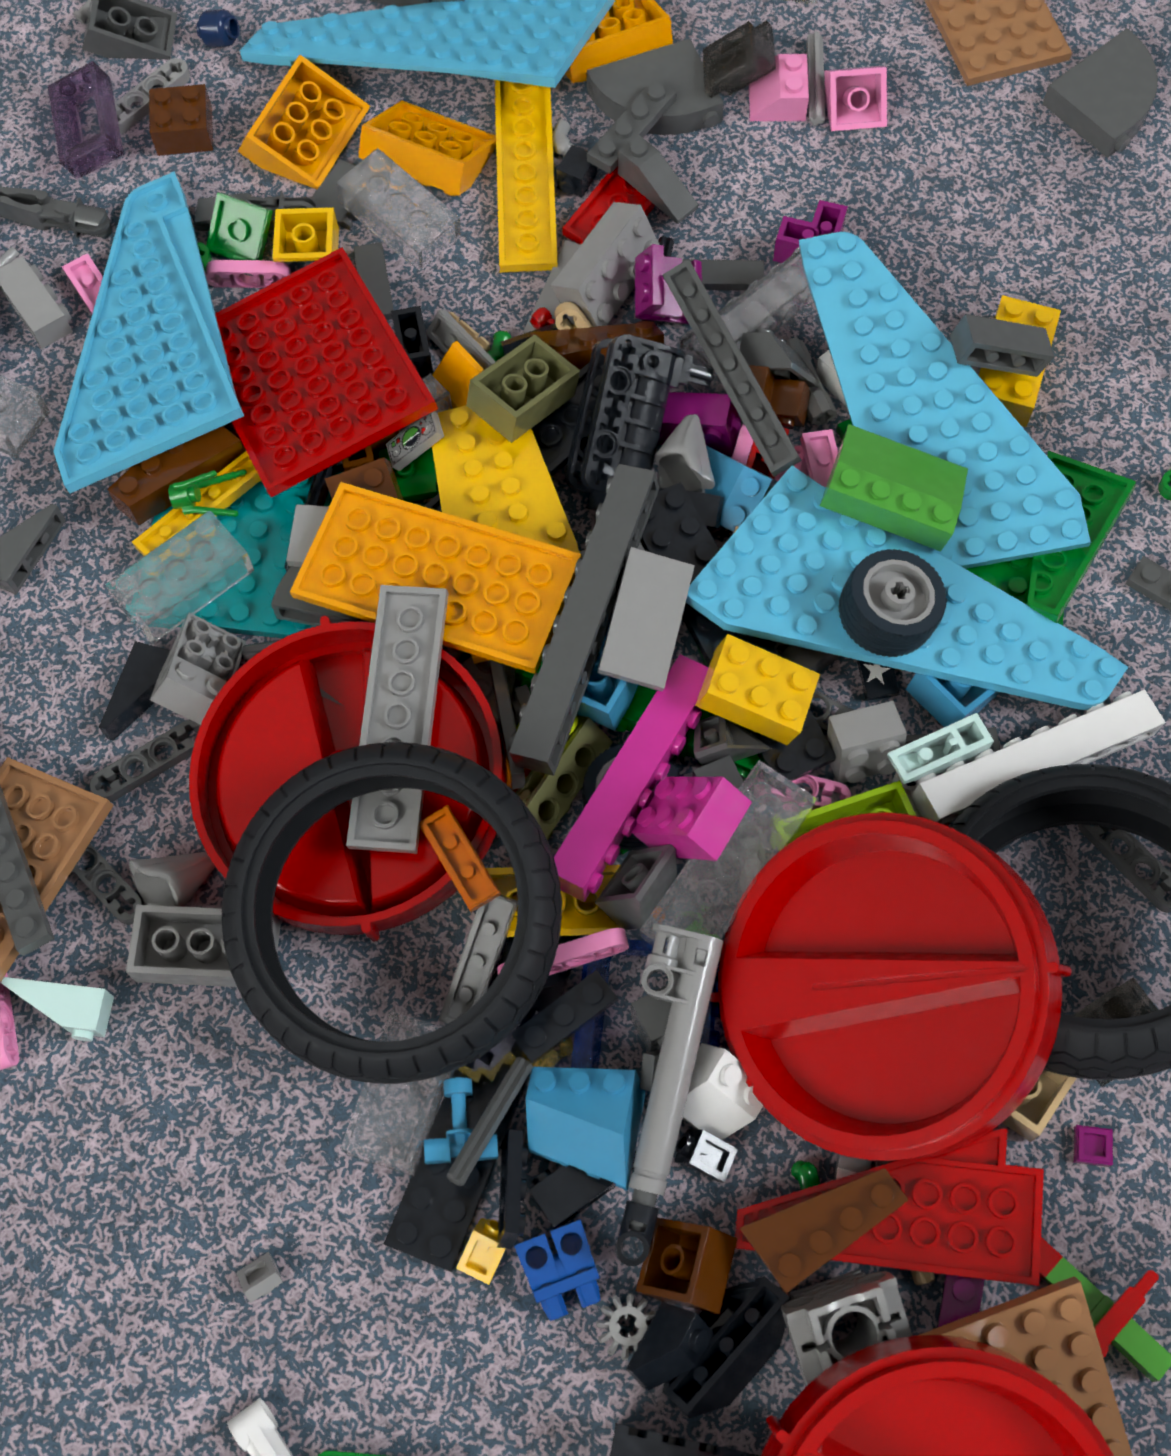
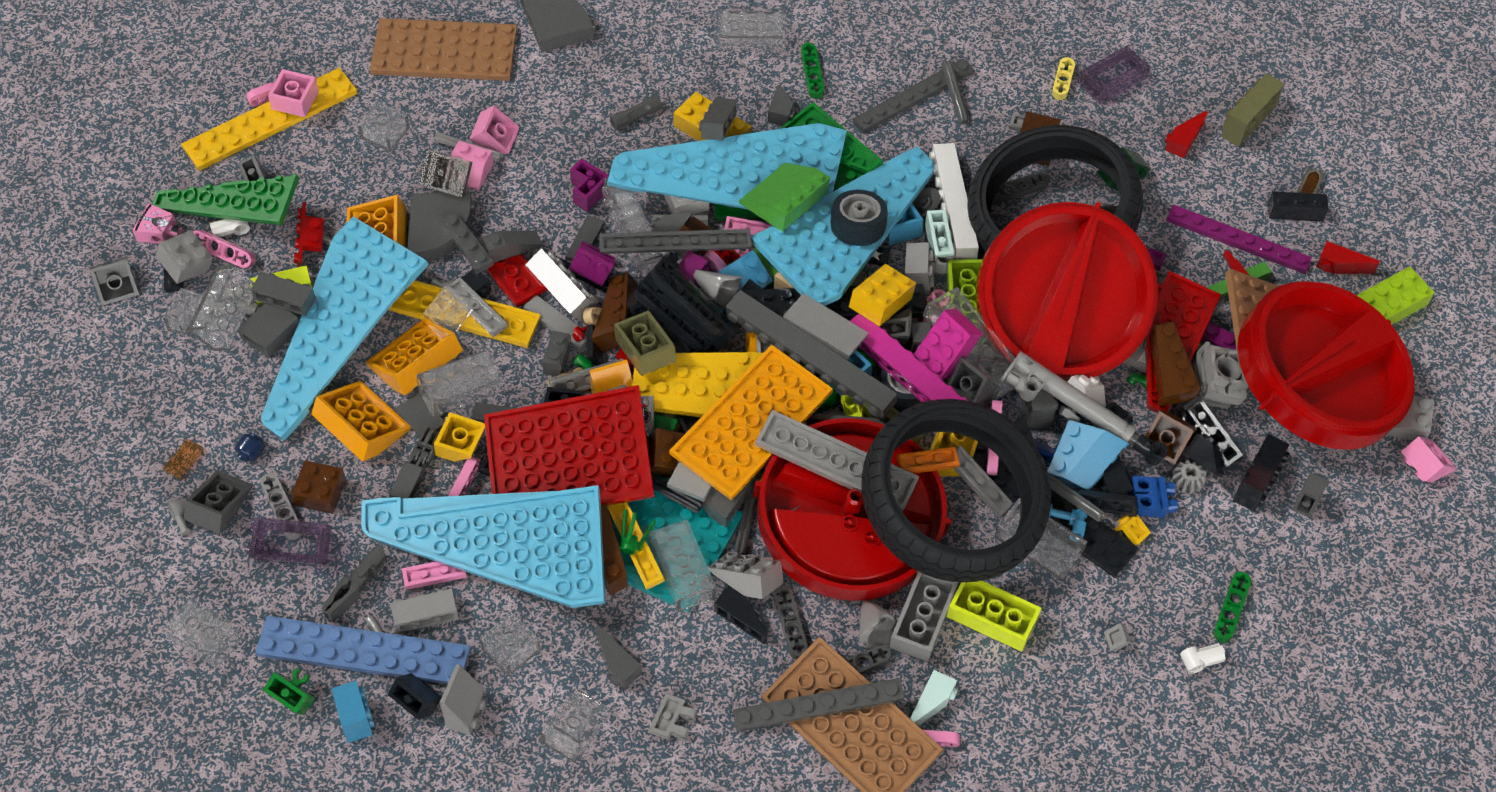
camera: 75 degrees left, 10 degrees down
(234, 1066) = (994, 613): none -> neon yellow brick
(238, 228) = (431, 473): plate -> none
(496, 306) = (557, 353): none -> dark grey brick
(511, 151) = (449, 309): none -> clear plate
(531, 183) = (482, 313): none -> light grey tile
(1006, 265) = (625, 117): none -> dark grey axle
(1017, 715) = (926, 201): none -> dark grey dish
(1104, 442) = (781, 108): none -> dark grey slope

